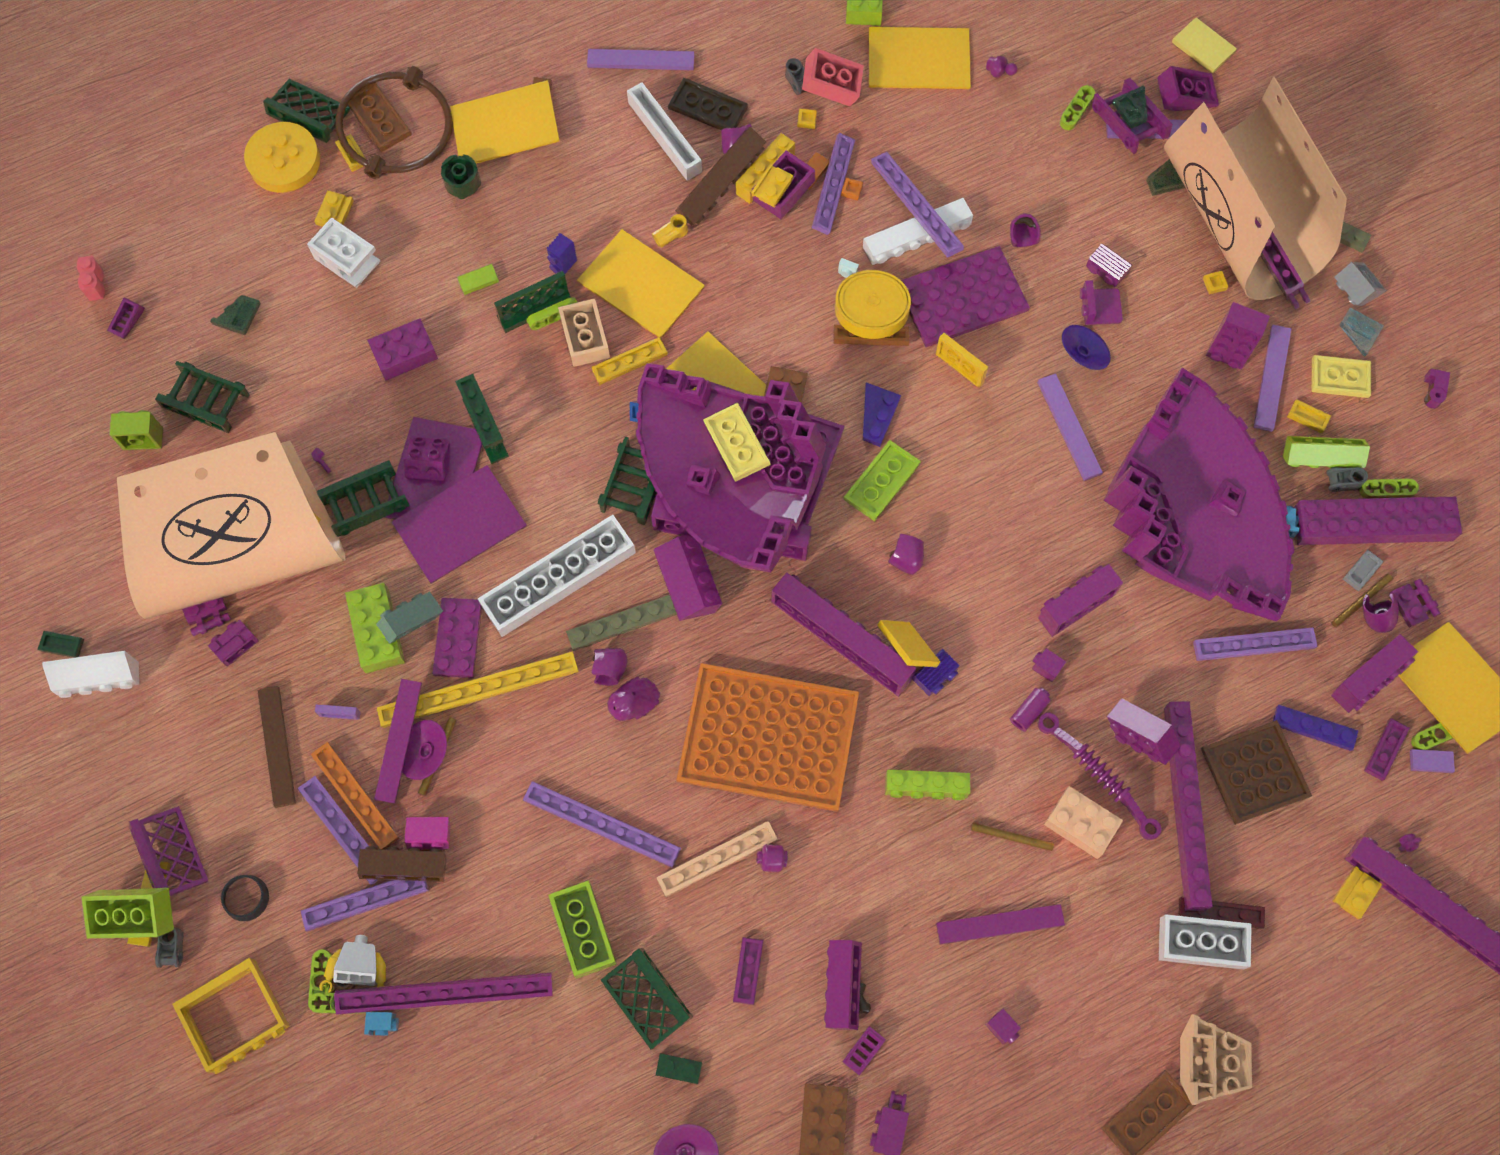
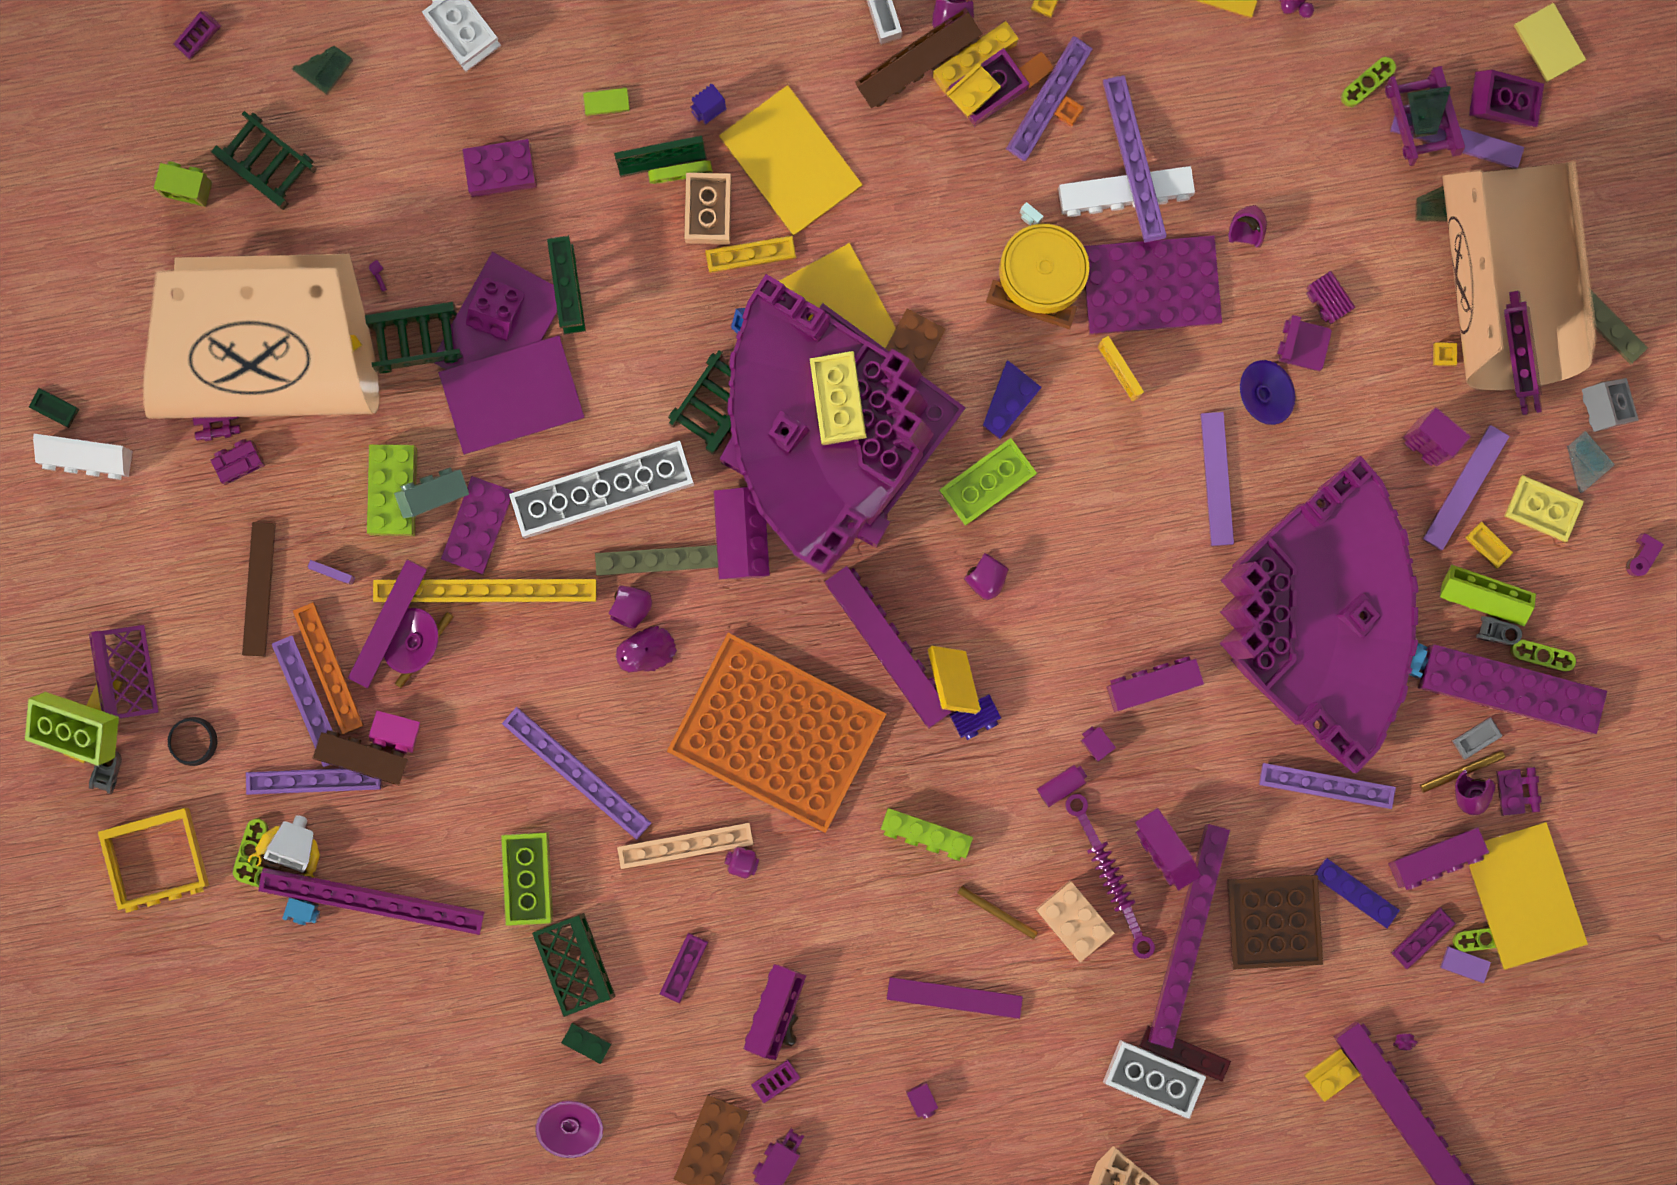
camera: 15 degrees right, 15 degrees up
(670, 231) = (839, 107): yellow piece -> none

